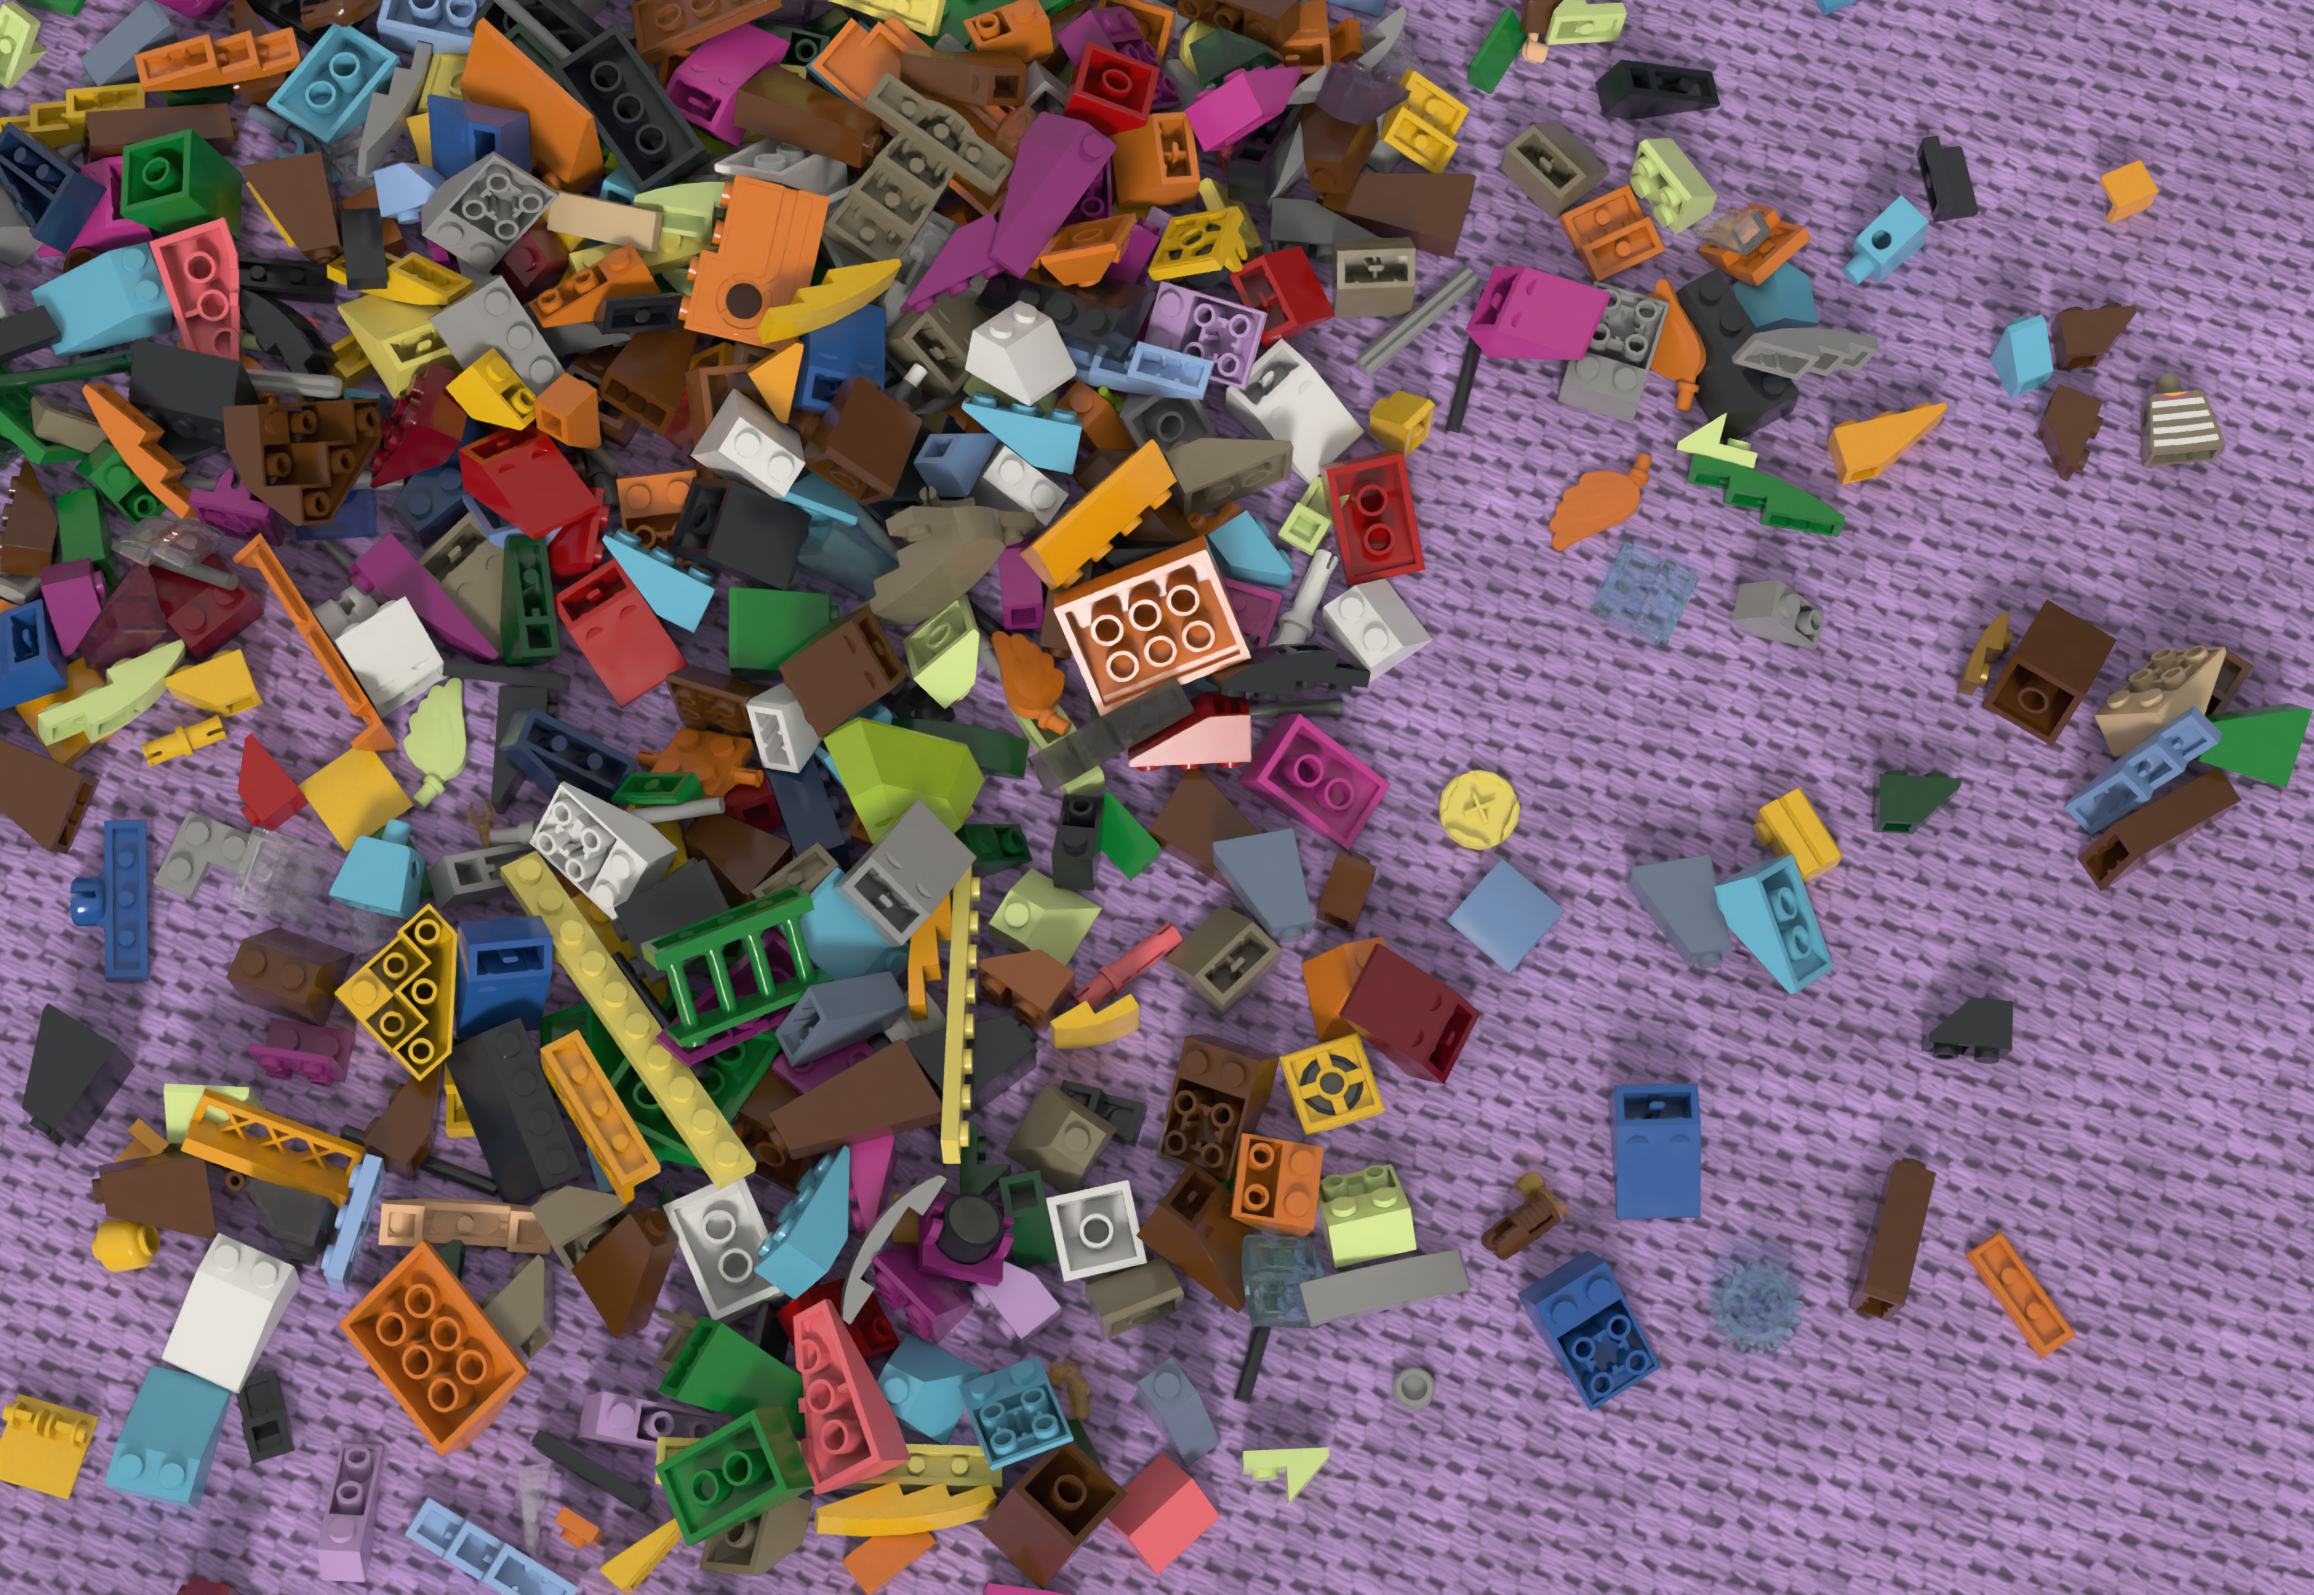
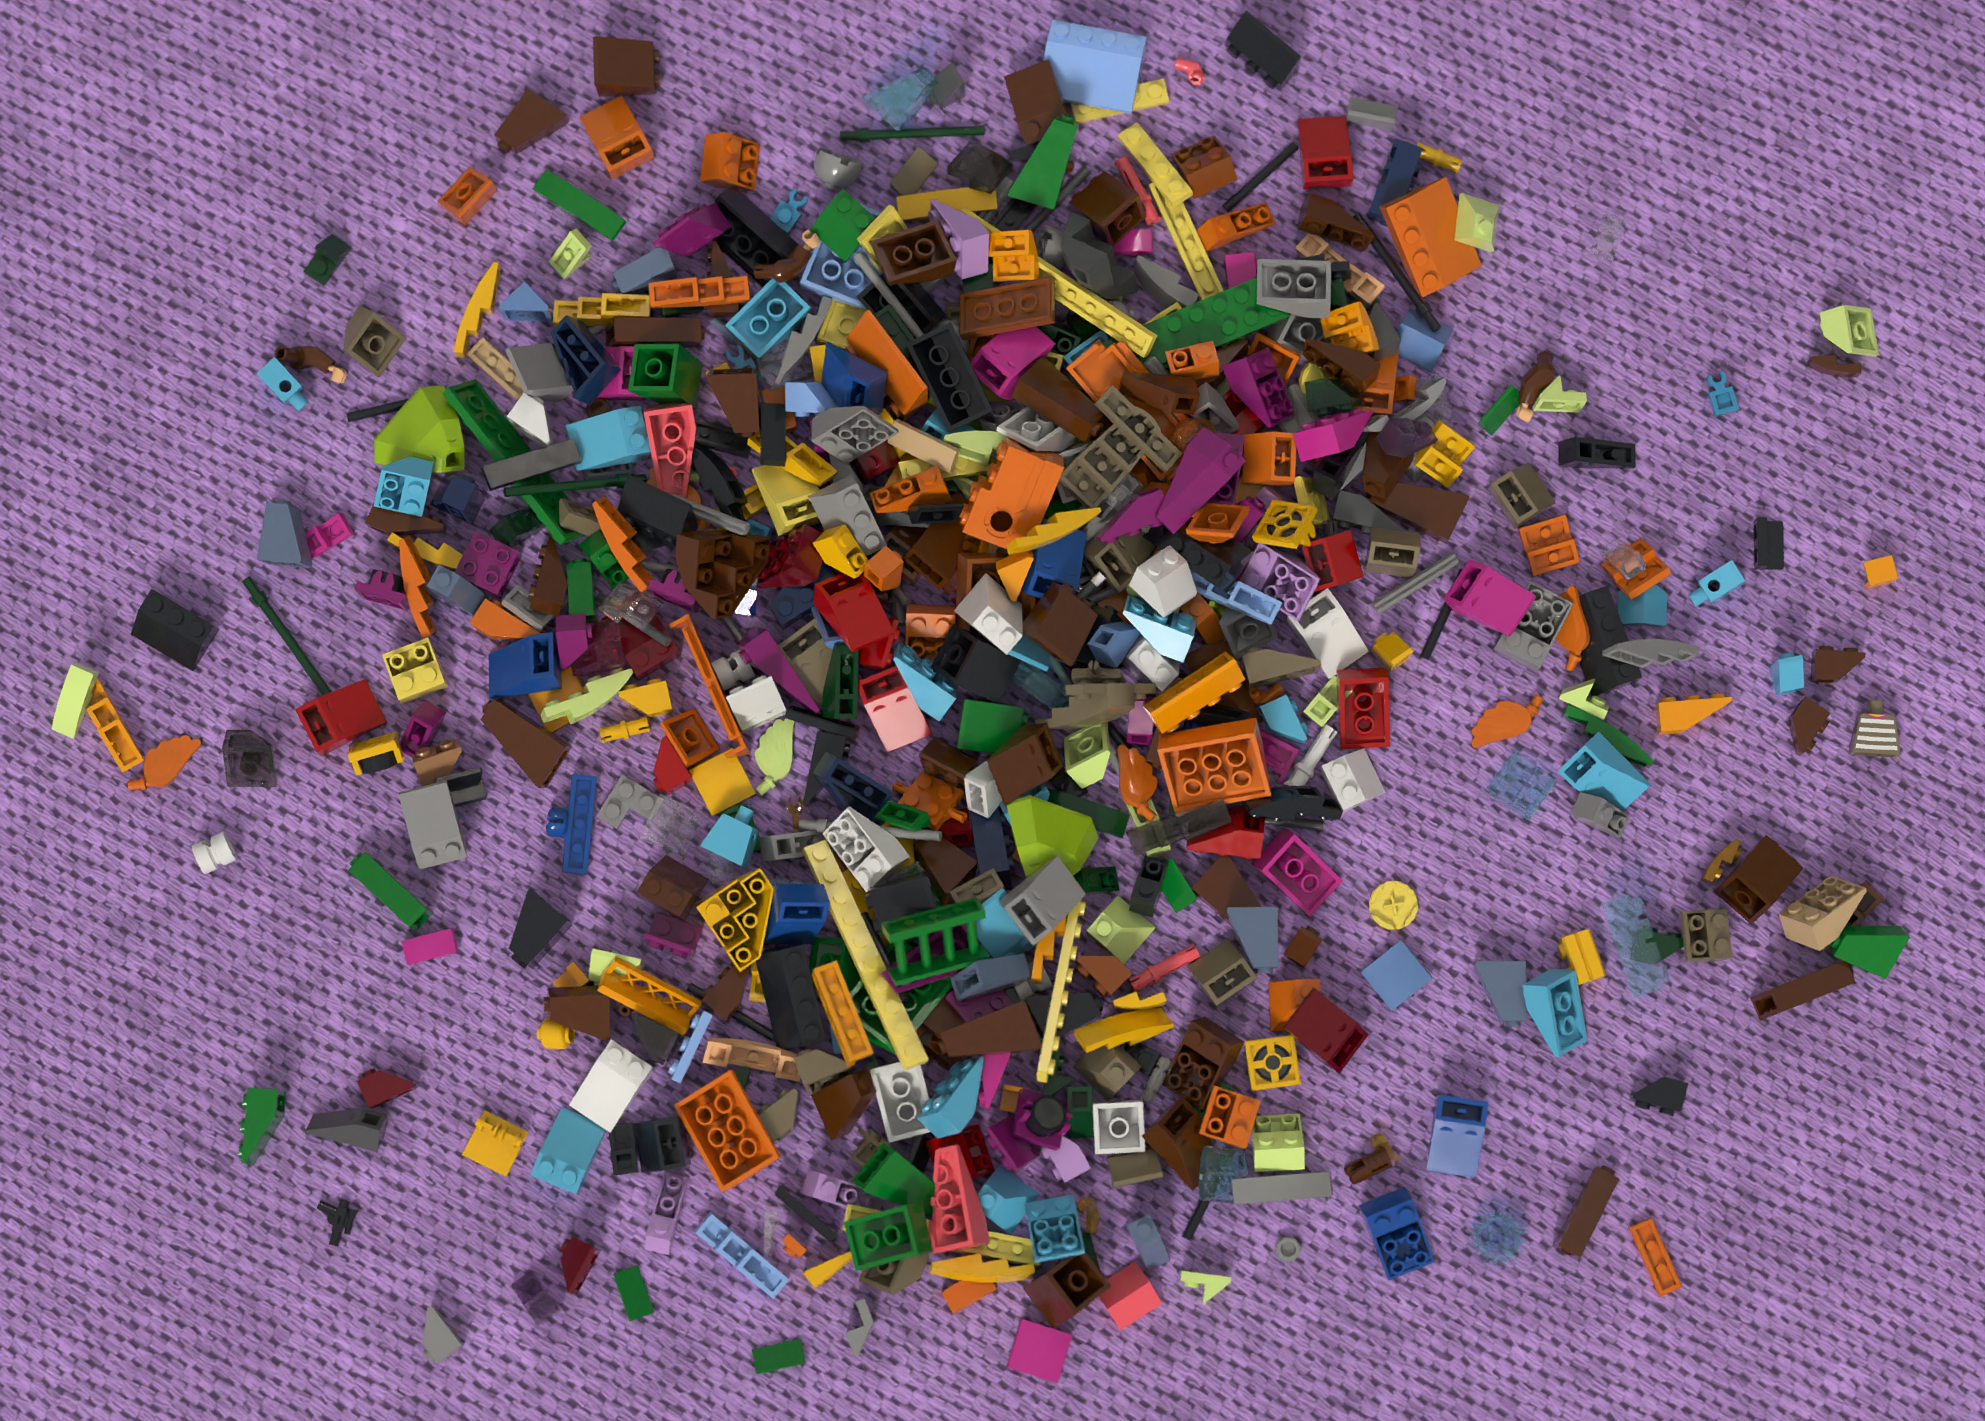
camera: 15 degrees right, 10 degrees up
(292, 735) = (690, 737): none -> orange slope
(329, 1395) = (662, 1144): none -> black slope
(917, 1198) = (1017, 1094): light grey slope -> none
(1077, 1067) = (1122, 1028): none -> yellow slope
(1110, 90) = (1247, 418): red slope -> none
(1145, 1149) = (1156, 1079): none -> light grey axle
(1671, 184) = (1592, 520): yellowish green slope -> none
(1772, 541) = (1604, 773): none -> medium azure slope
(1870, 794) = (1634, 953): none -> clear light blue windscreen
(1990, 767) = (1706, 935): none -> dark tan slope
(2142, 770) = (1797, 956): medium blue slope -> none

